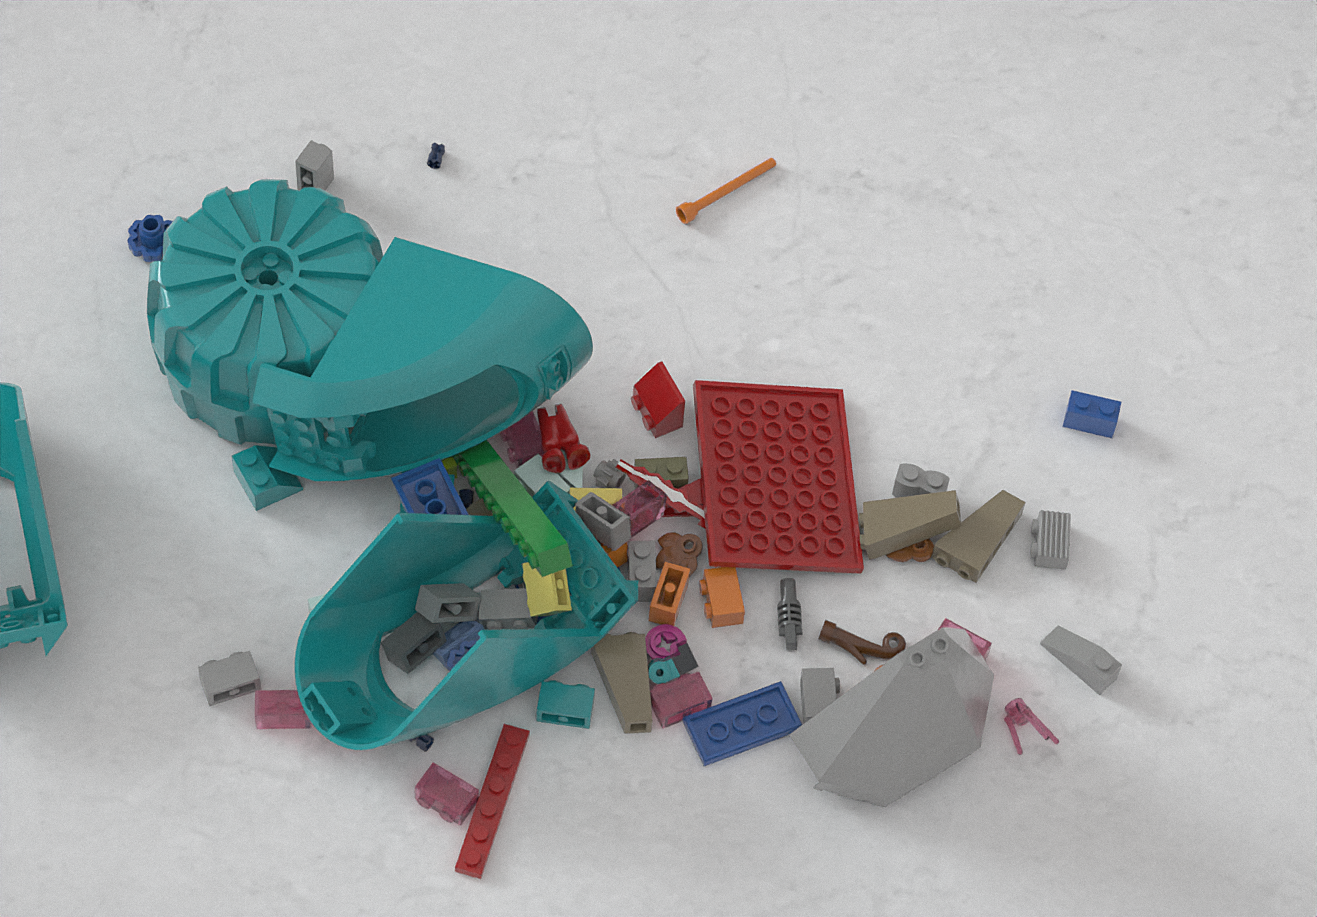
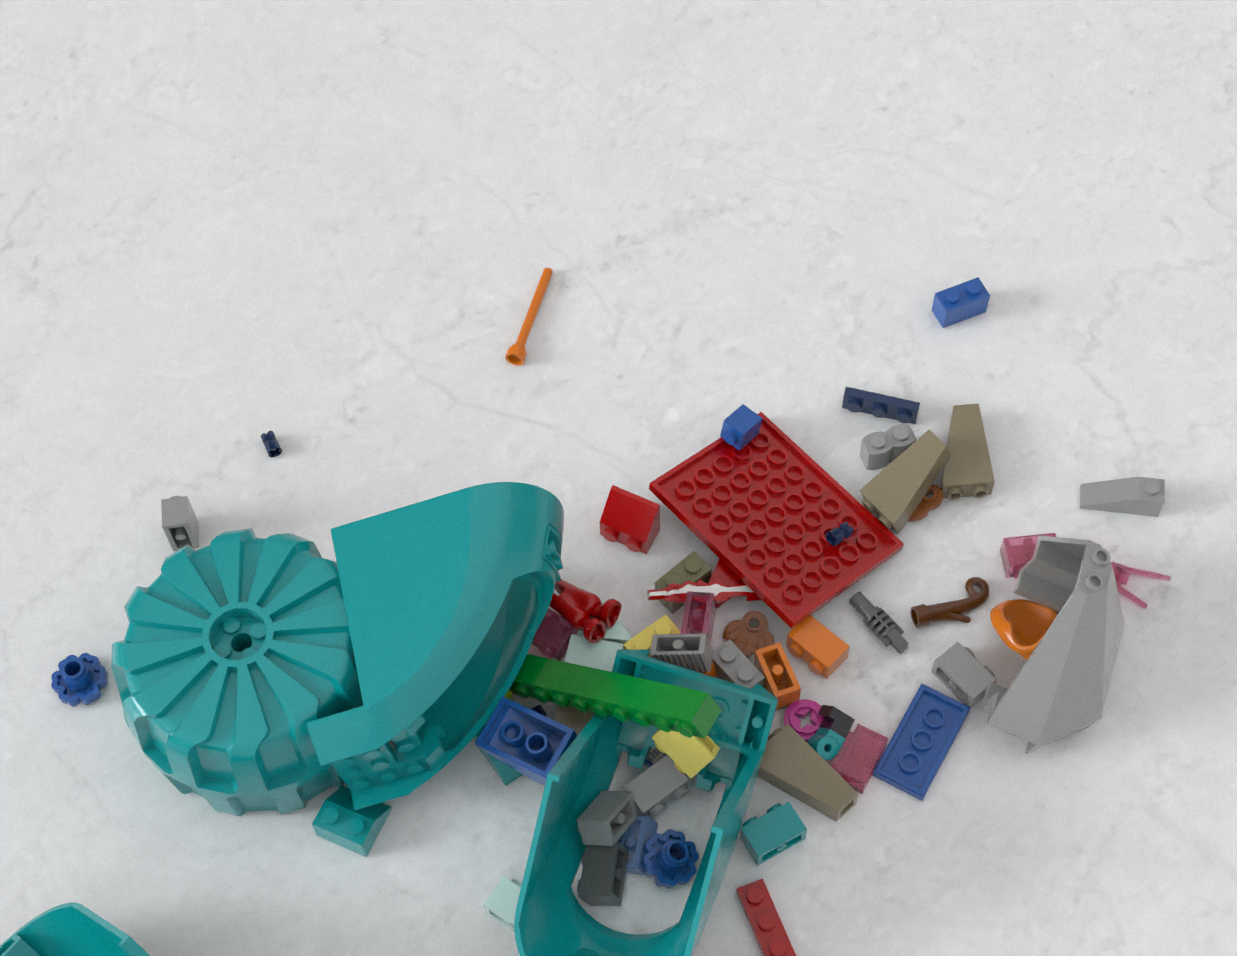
camera: 30 degrees left, 0 degrees up
(608, 475) = (641, 610): light grey gear -> none
(808, 387) = (741, 427): none -> blue brick
(808, 522) = (837, 534): none -> dark blue piece
(946, 451) = (880, 405): none -> dark blue plate
(1052, 539) = (1019, 420): light grey brick -> none

